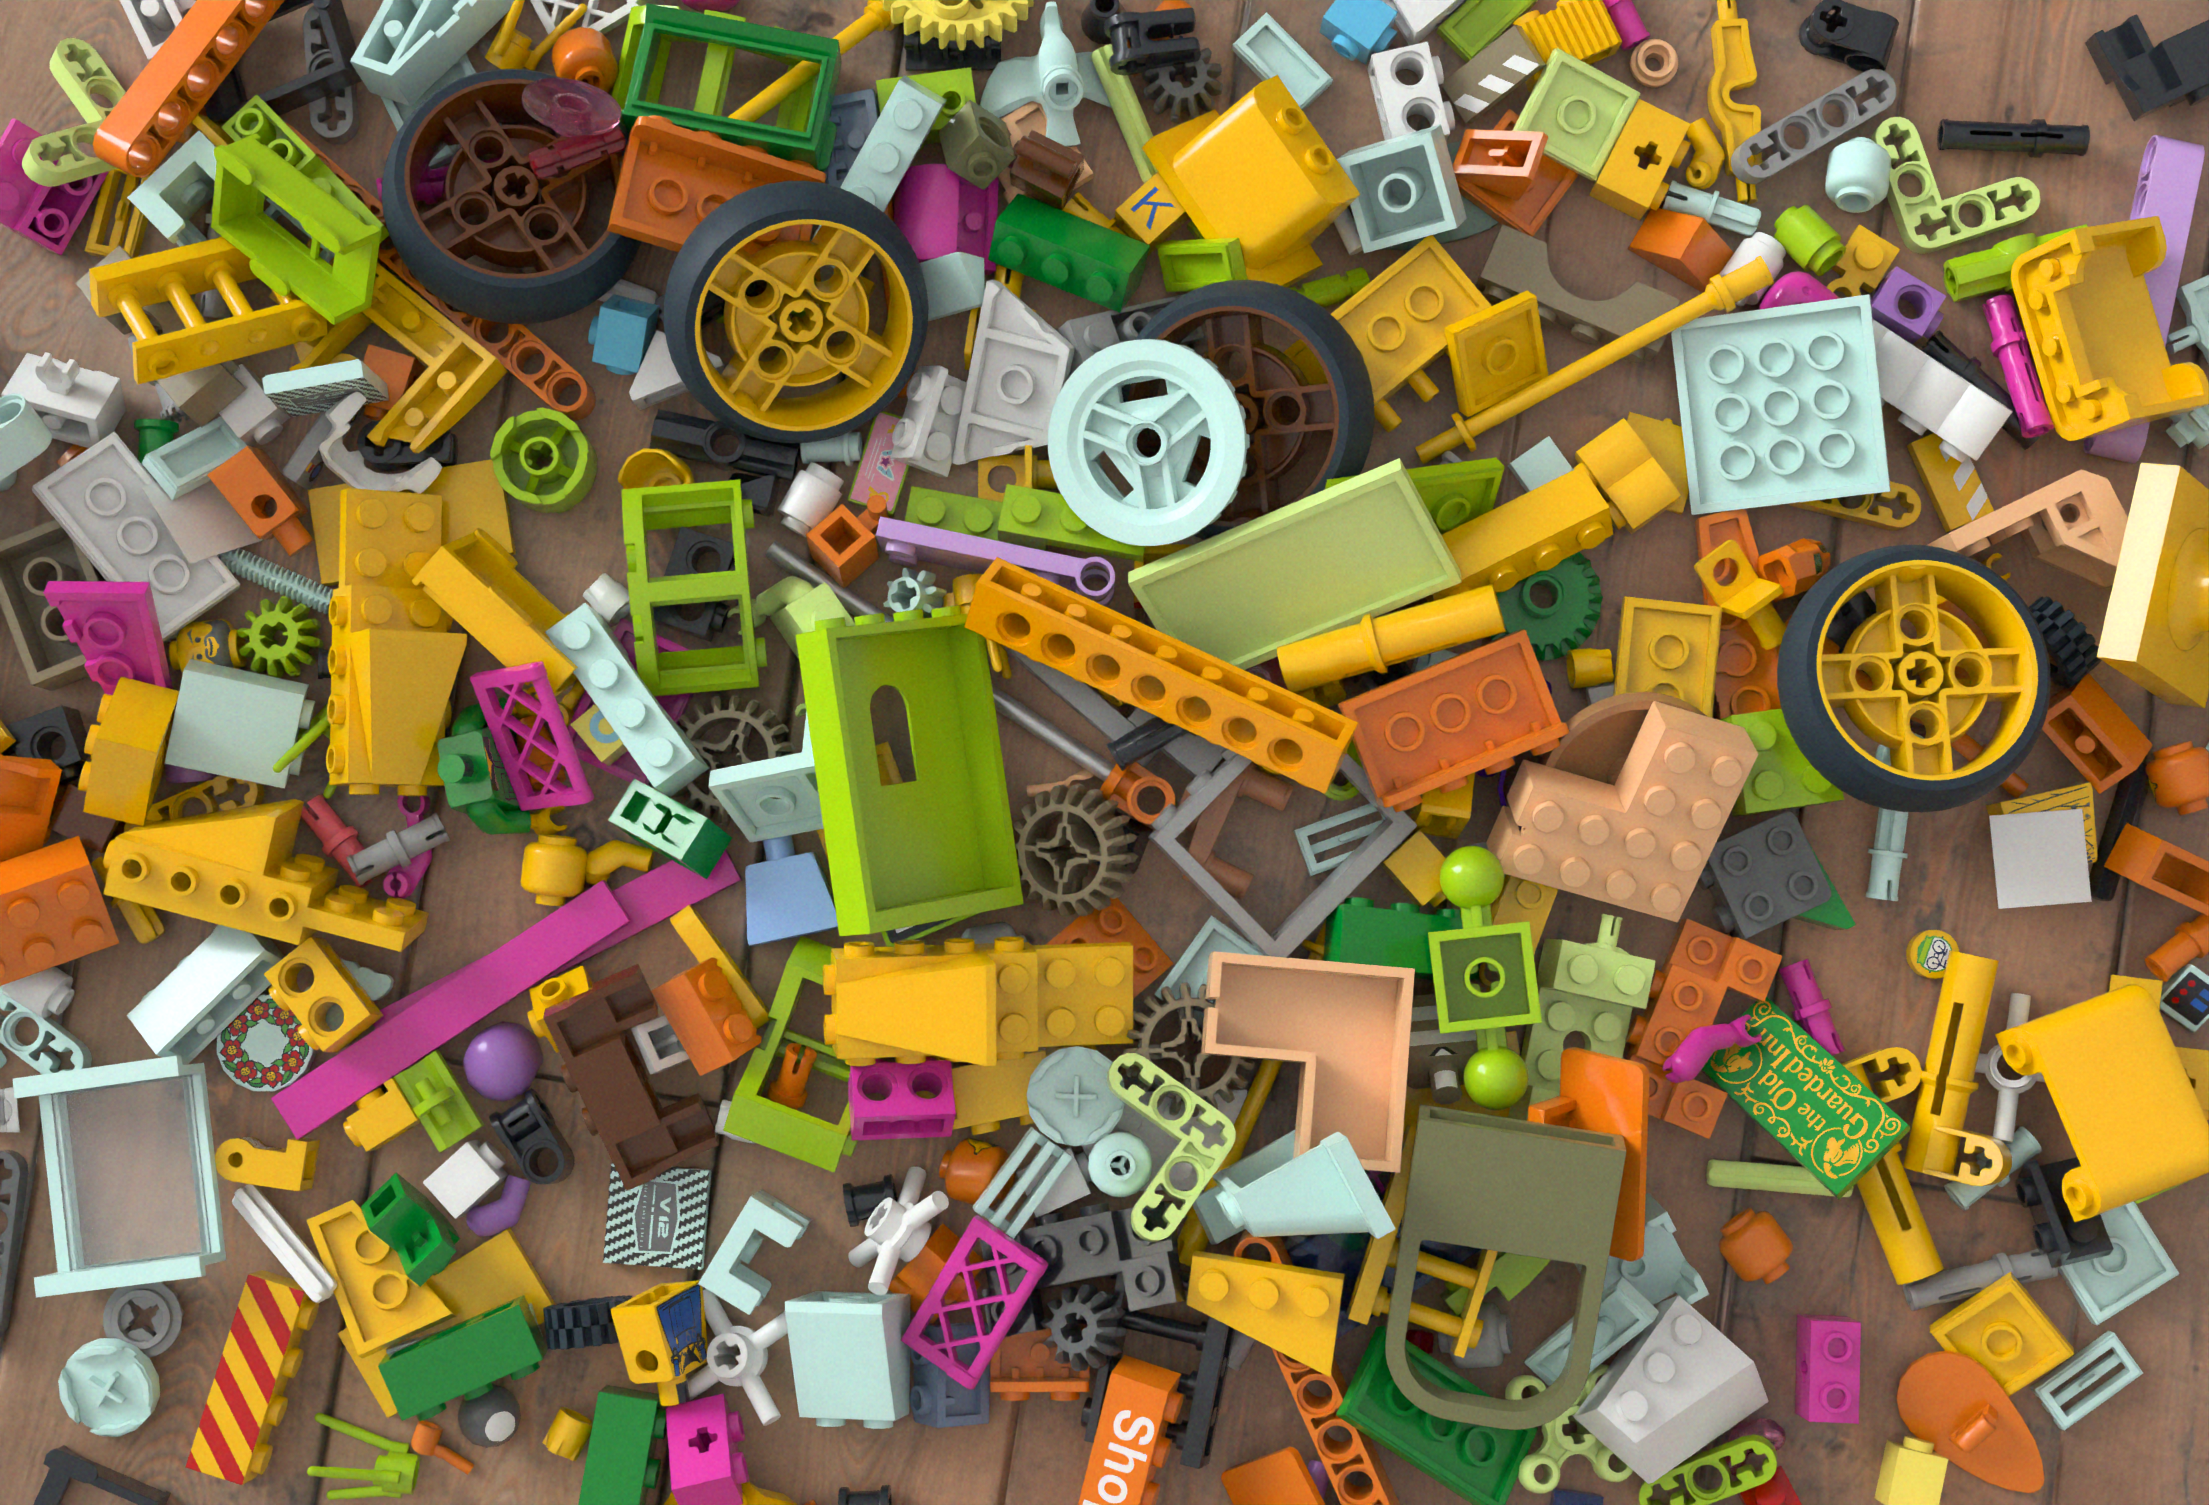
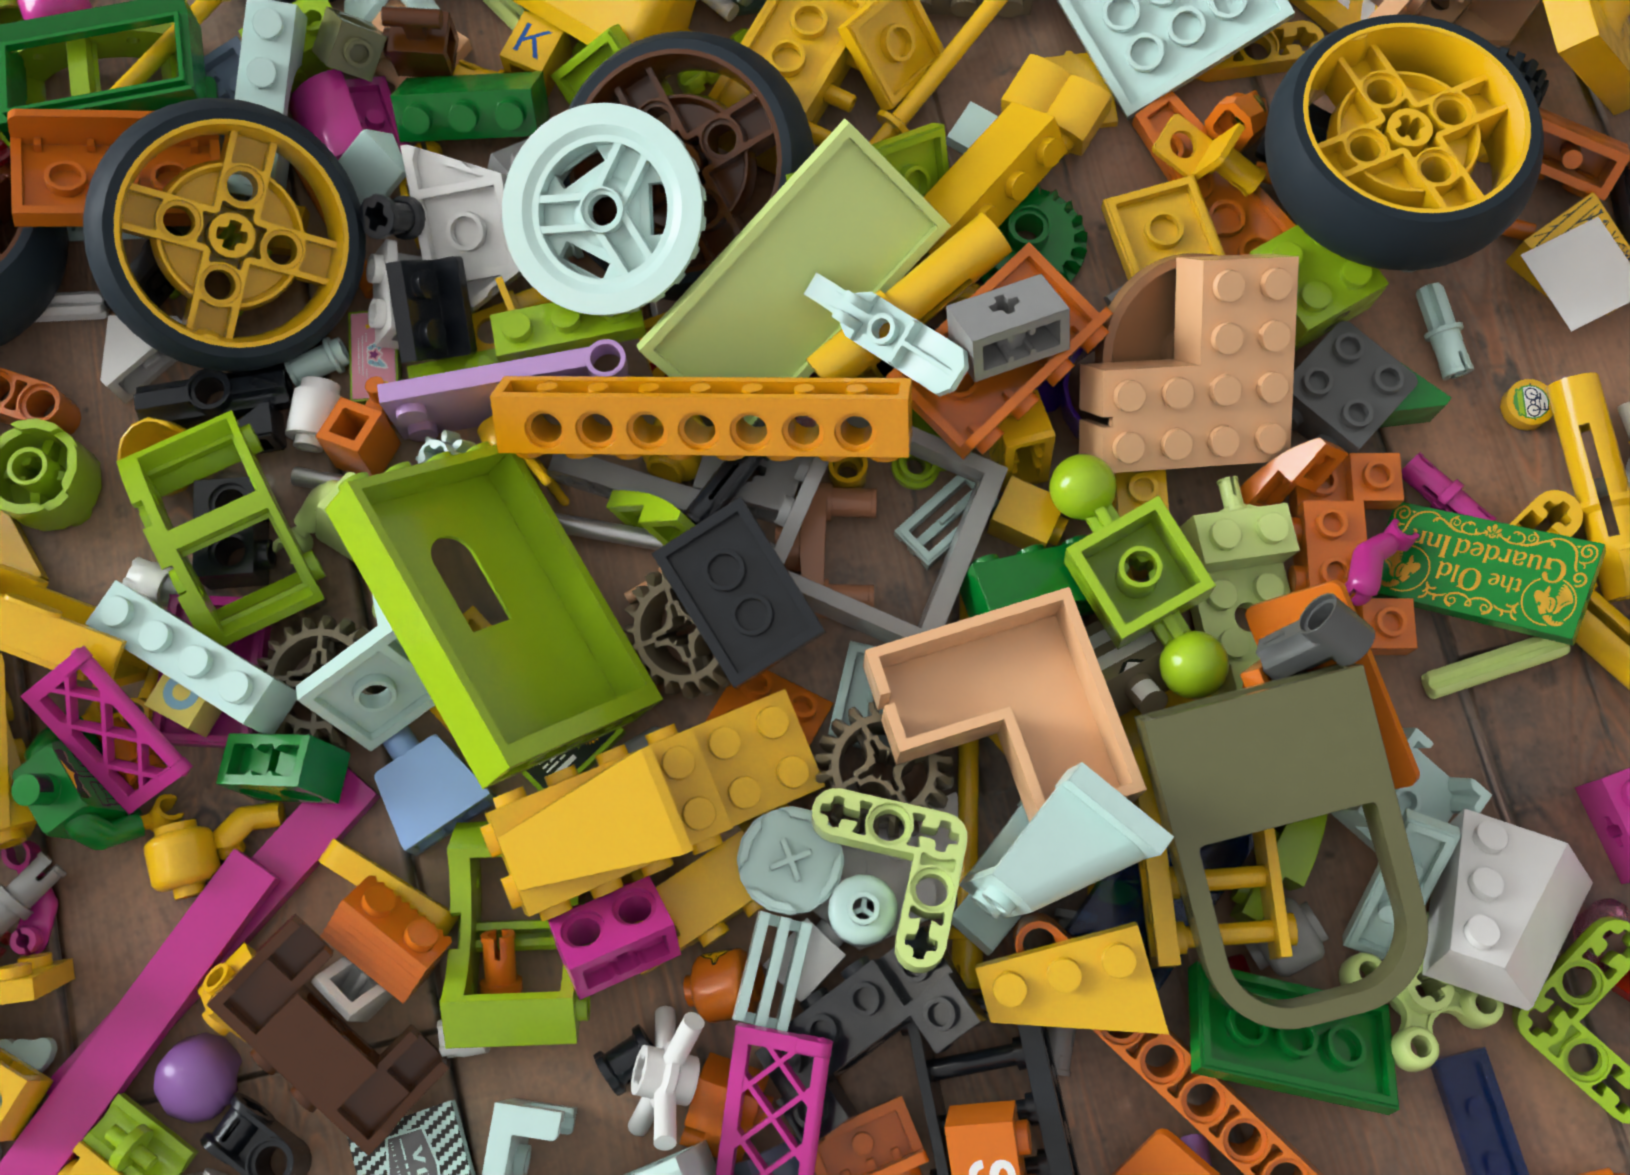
camera: 20 degrees left, 10 degrees down
(623, 333) = (77, 334): medium azure brick -> none
(953, 349) = (387, 217): none -> black bush
(956, 450) = (431, 309): none -> black bracket
(1082, 737) = (649, 512): none -> lime slope
(1092, 1343) = (914, 1095): dark grey gear -> none
(1126, 849) = (738, 593): none -> black plate
(1369, 689) = (909, 344): none -> light aqua piece
(1465, 712) = (1010, 326): none -> light grey brick
(1589, 667) = (1098, 278): yellow hose -> none
(1604, 1107) = (1322, 633): none -> dark grey piece
(1679, 934) = (1302, 465): none -> orange slope
(1755, 1246) = (1508, 734): orange head -> none

